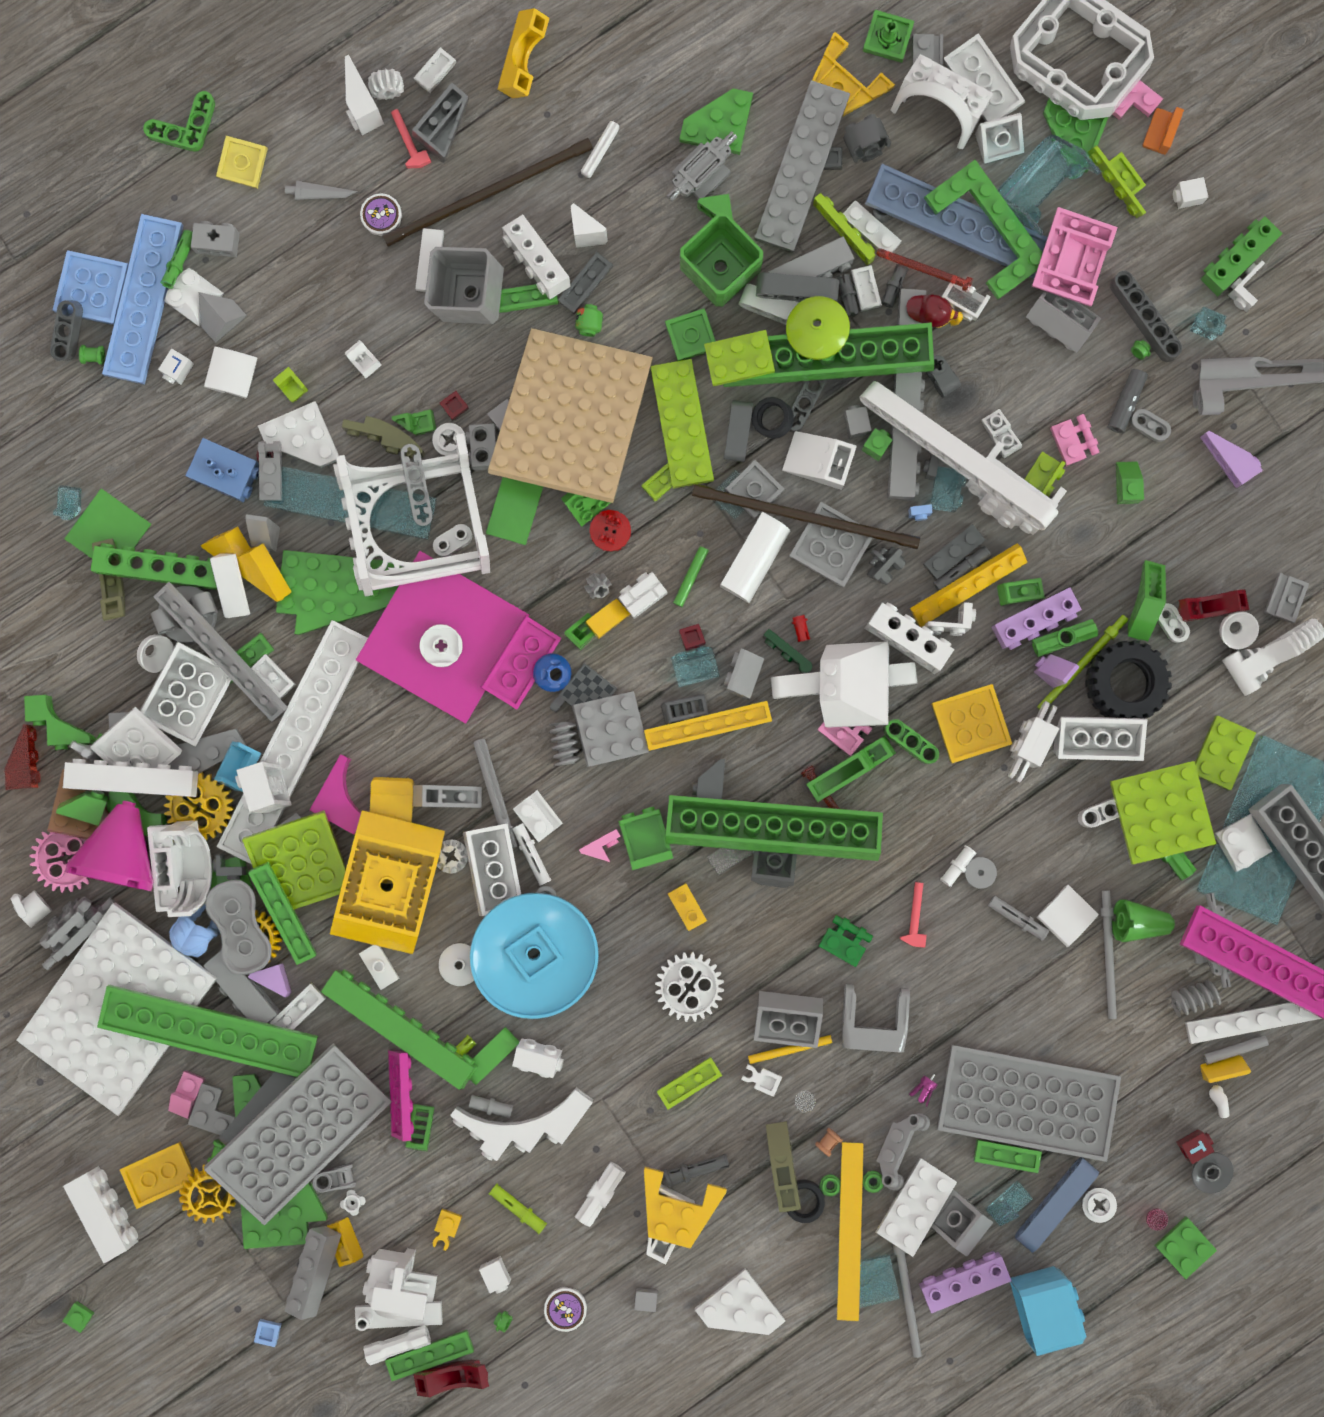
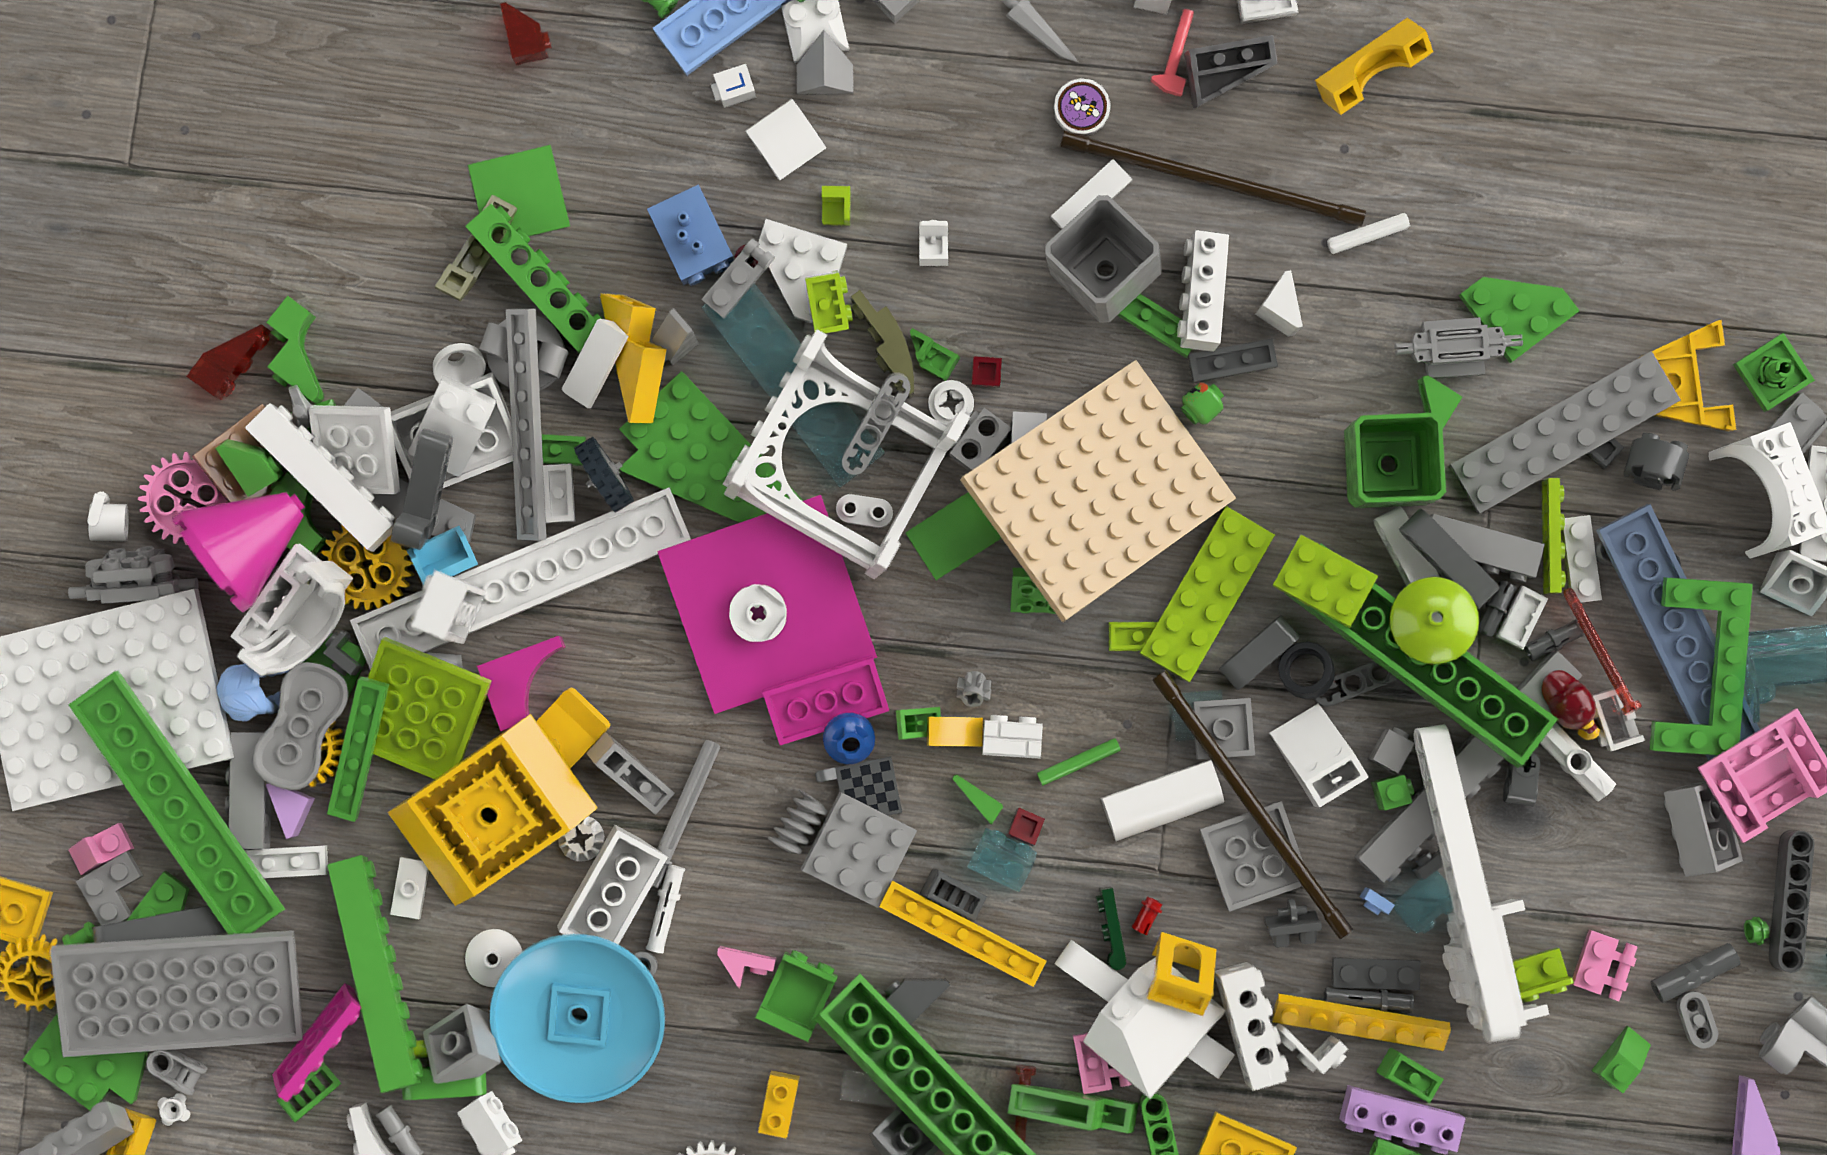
camera: 30 degrees right, 0 degrees up
(34, 439) = (525, 36): none -> clear red slope
(68, 502) = (503, 132): clear light blue bracket -> none
(179, 689) = (459, 414): none -> white slope
(194, 735) = (424, 490): none -> dark grey beam
(288, 642) = (603, 474): none -> black wheel
(331, 440) = (827, 302): none -> lime bracket
(482, 1026) = (461, 1045): none -> light grey slope
(537, 816) = (706, 874): white plate -> none
(606, 539) = (1025, 648): red plate -> none
(659, 643) = (985, 804): none -> bright green slope
(689, 334) = (1295, 508): bright green plate -> none
(744, 675) = (1046, 912): light grey slope -> none
(850, 652) = (1178, 991): none -> yellow panel
(976, 341) = (1589, 774): none -> white piece
(1000, 430) = (1533, 889): white slope -> none

